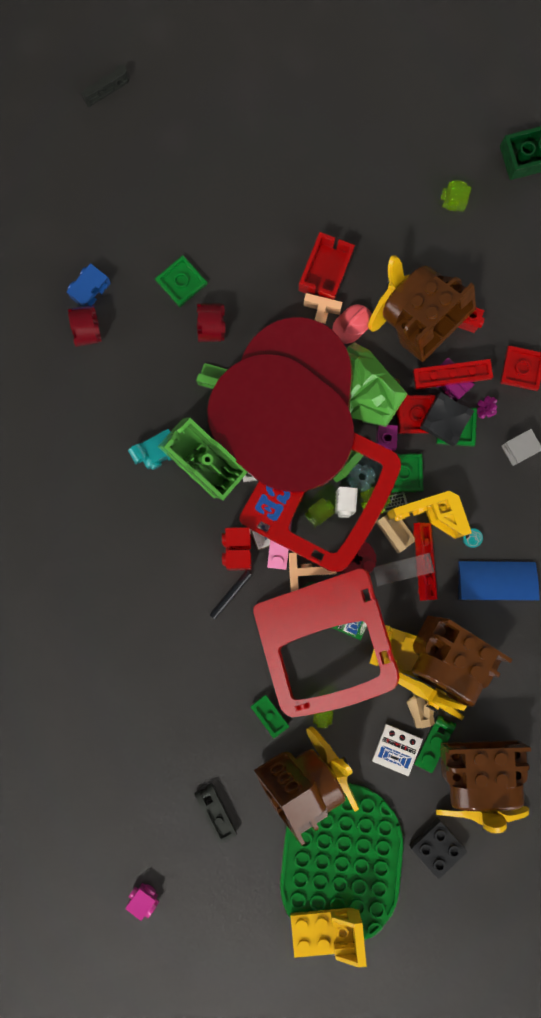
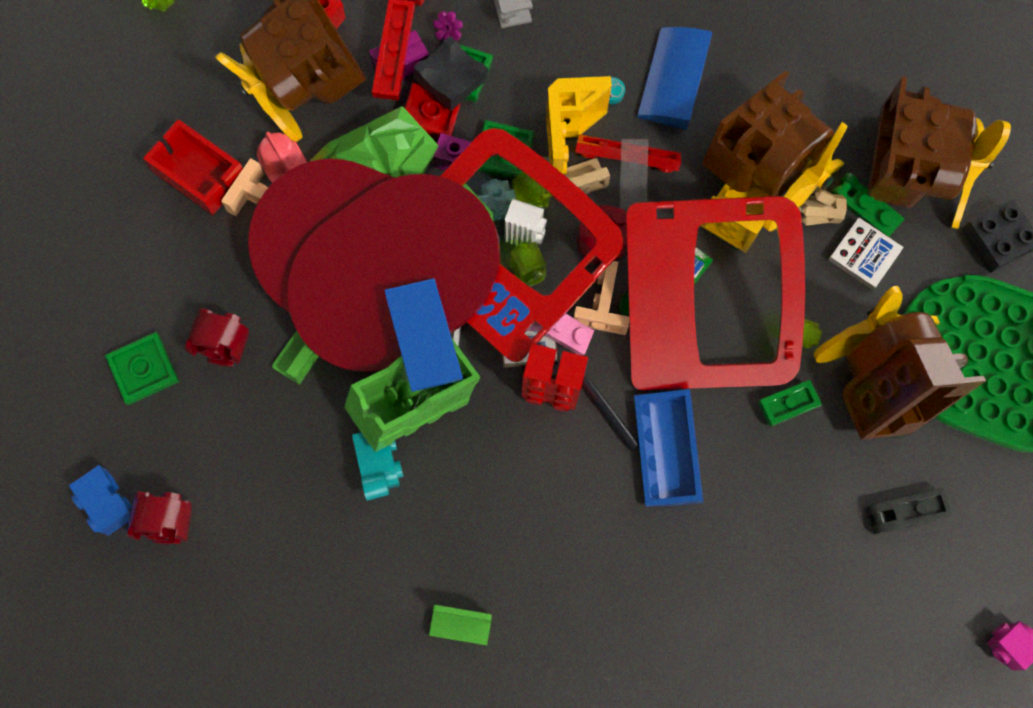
camera: 80 degrees left, 10 degrees down
(67, 532) = (460, 625): none -> bright green panel
(216, 640) = (668, 449): none -> blue slope
(238, 454) = (423, 335): none -> blue piece

